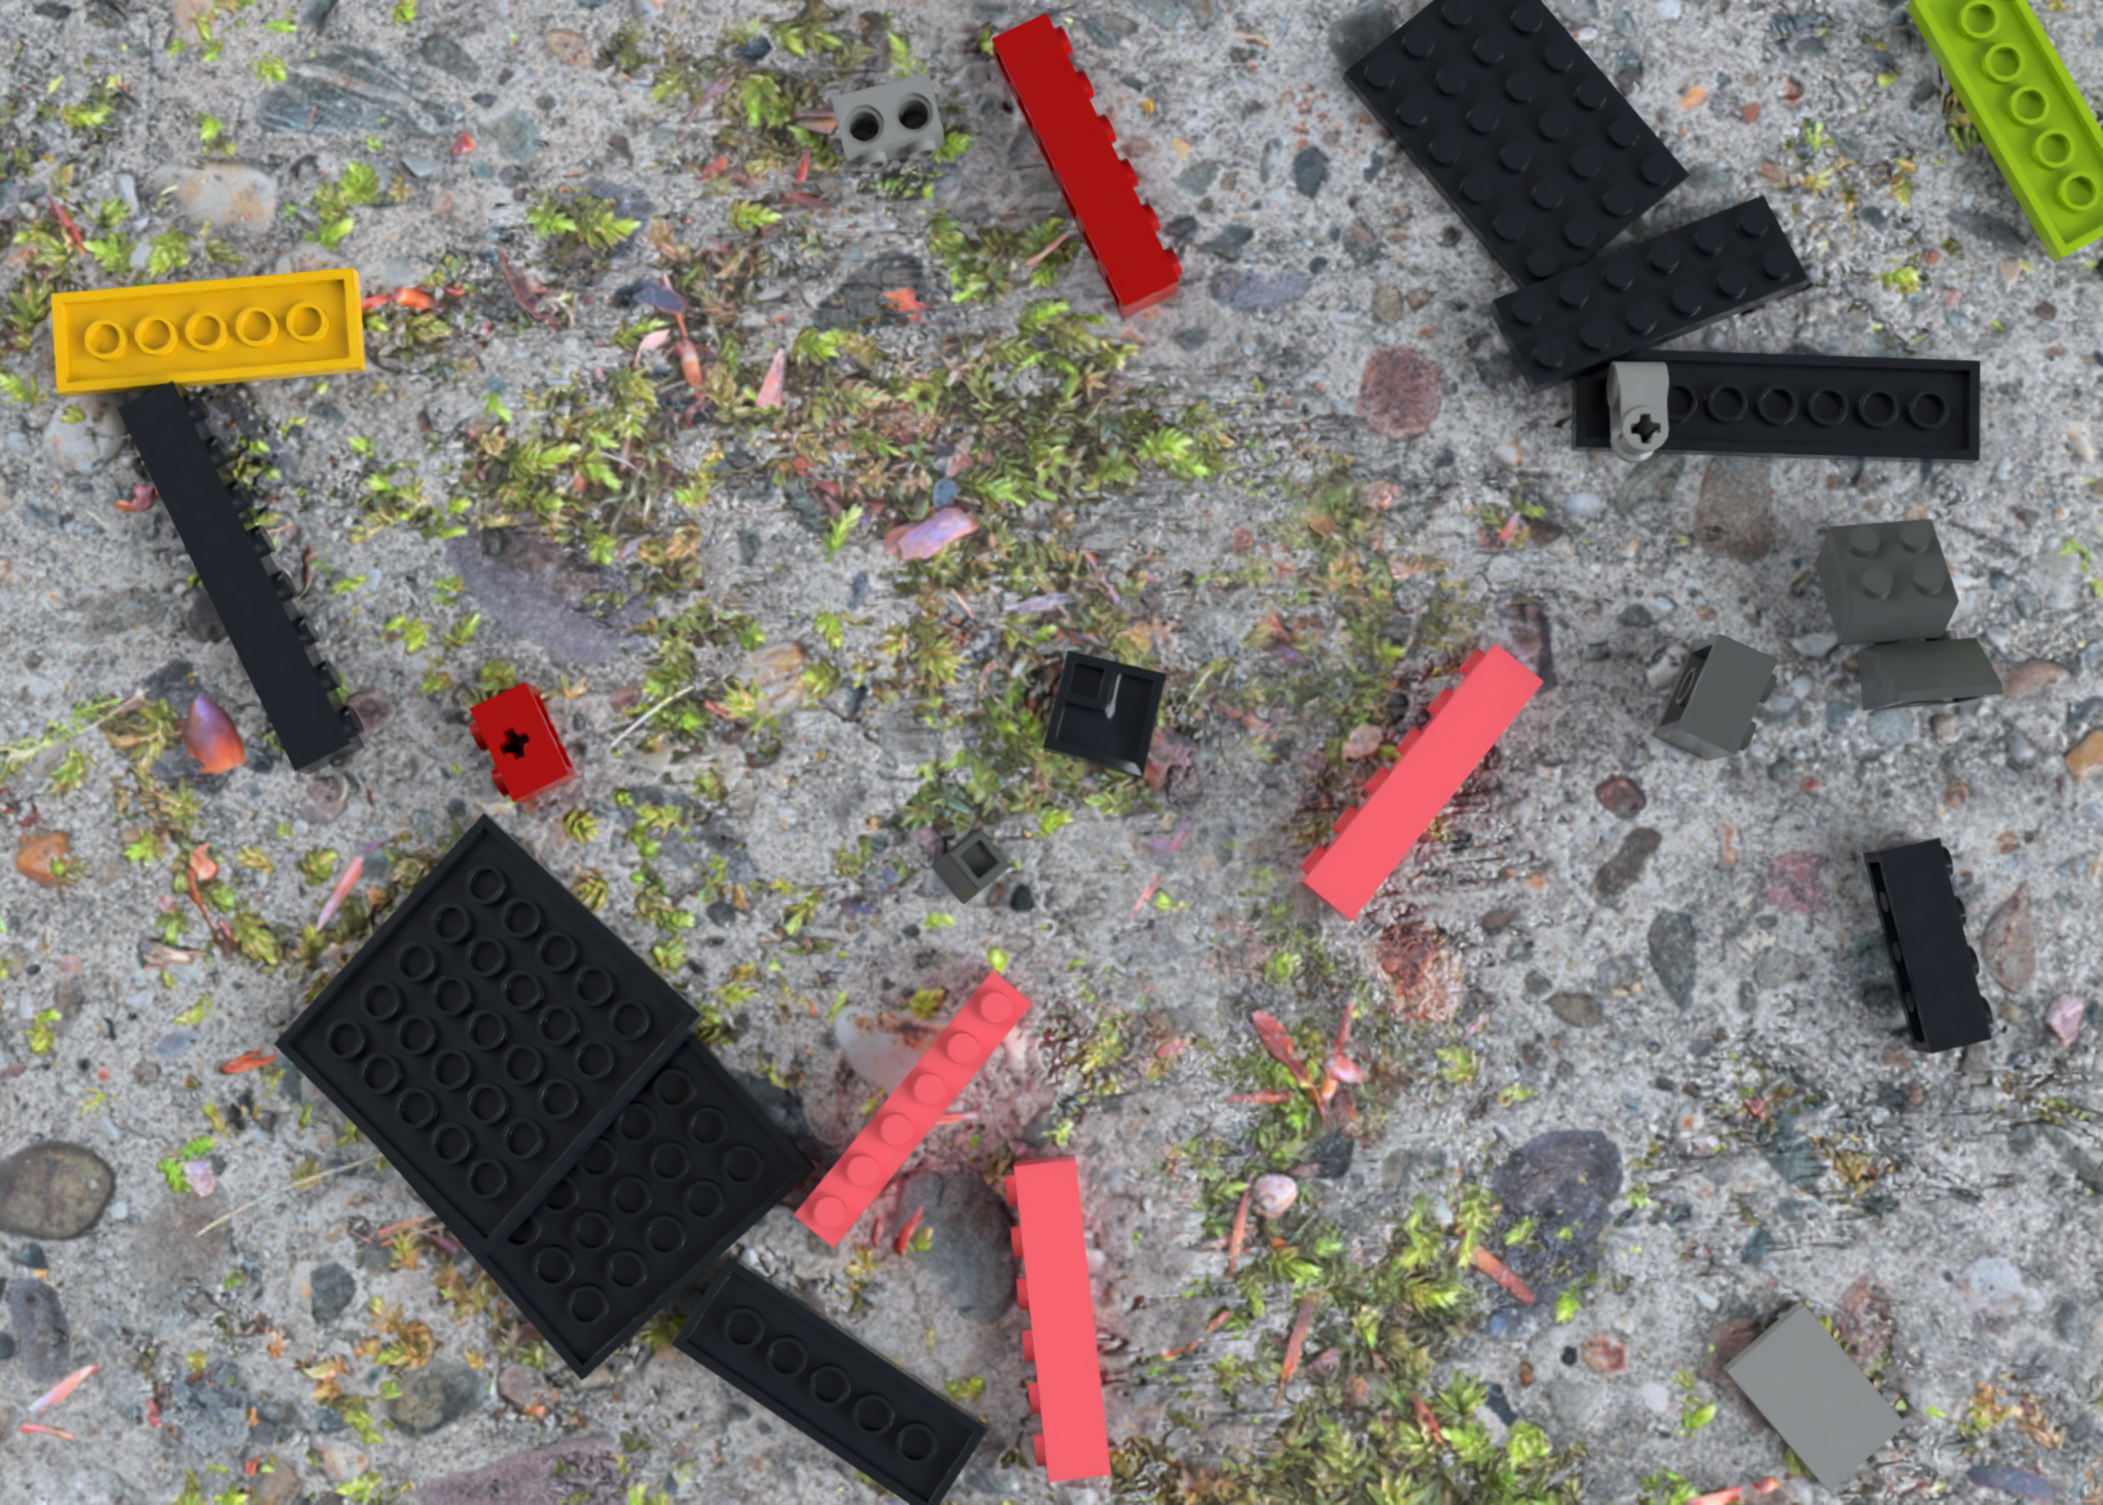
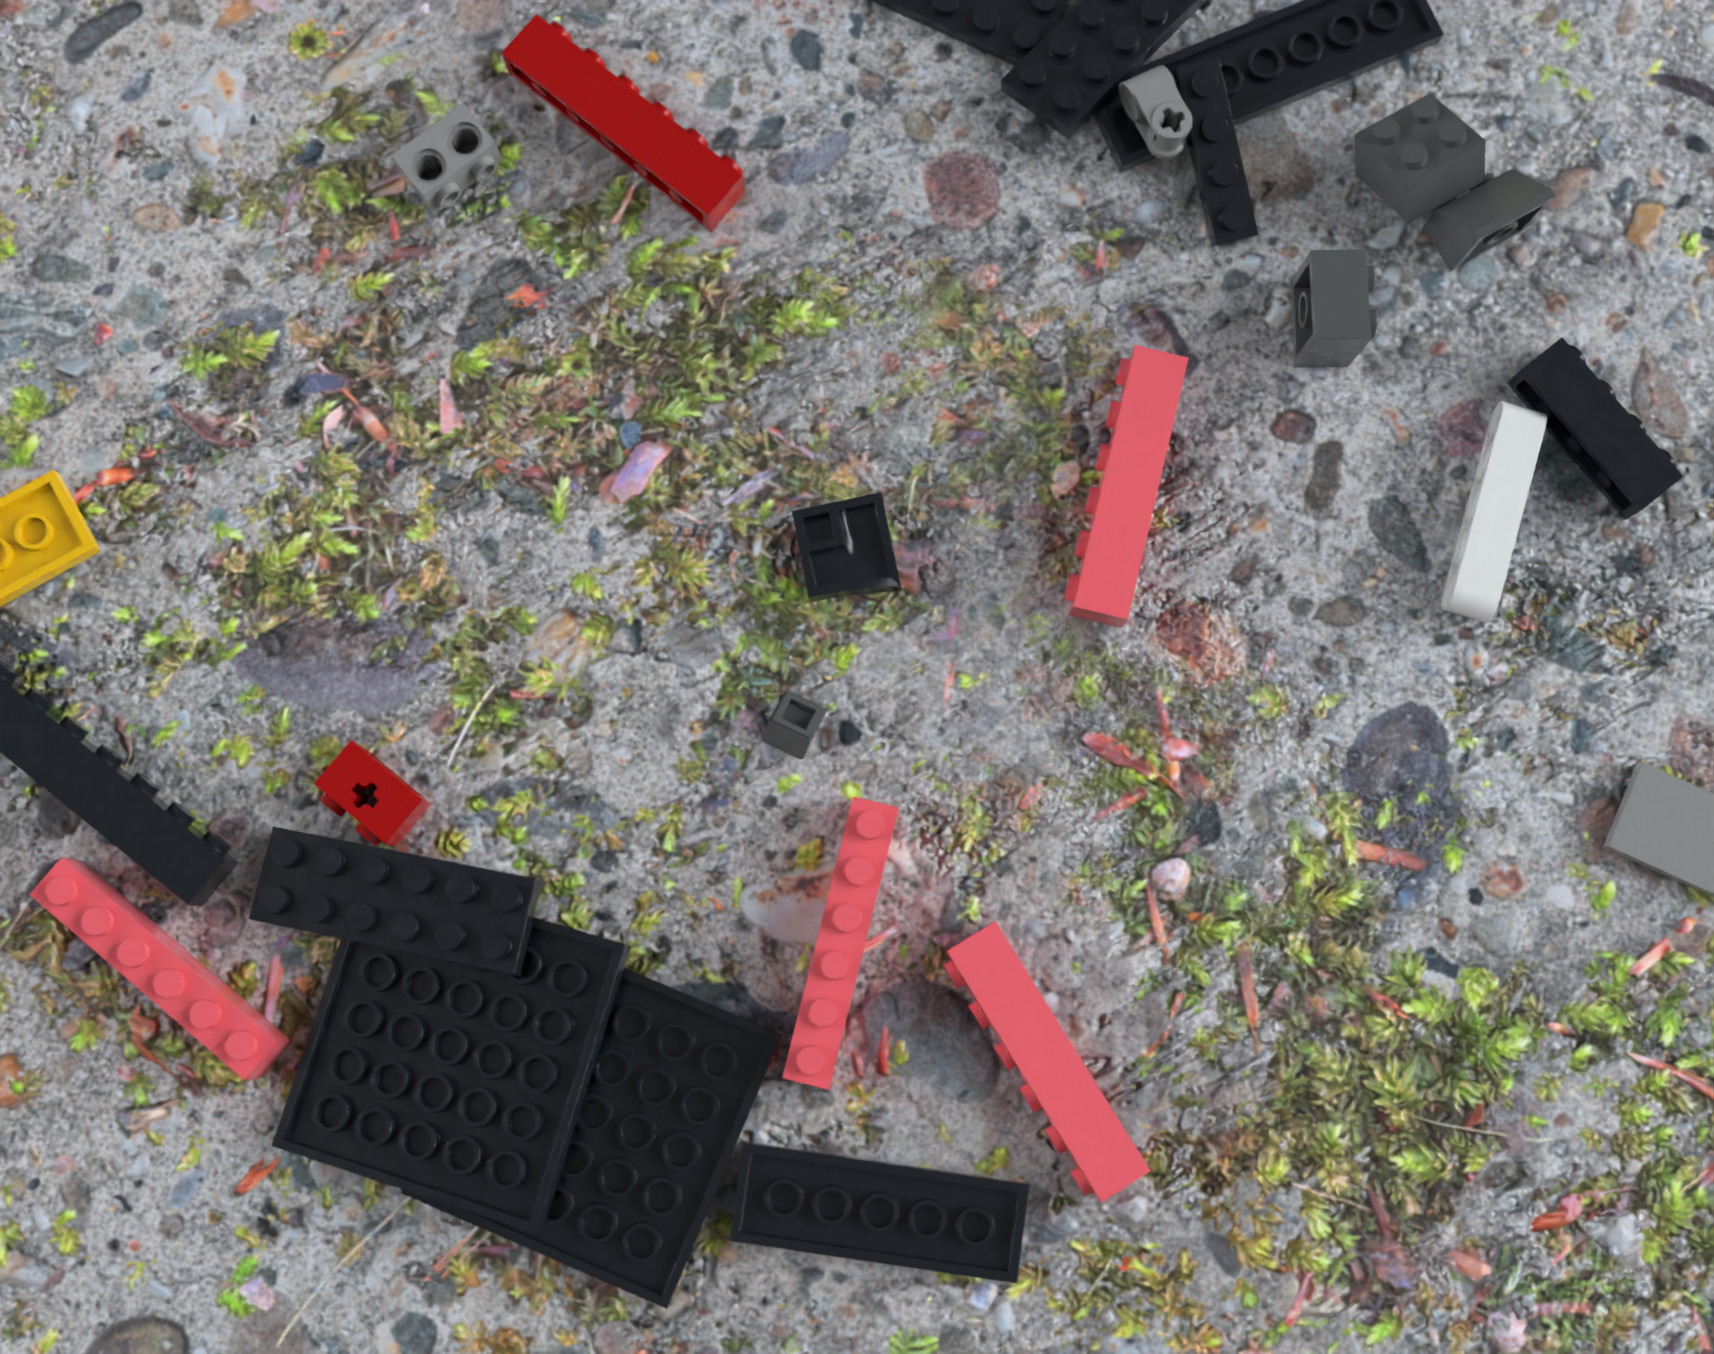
camera: 25 degrees left, 5 degrees down
(243, 819) = (161, 968): none -> coral brick
(498, 862) = (396, 900): none -> black plate
(1678, 478) = (1216, 153): none -> black plate
(1781, 981) = (1494, 512): none -> white beam

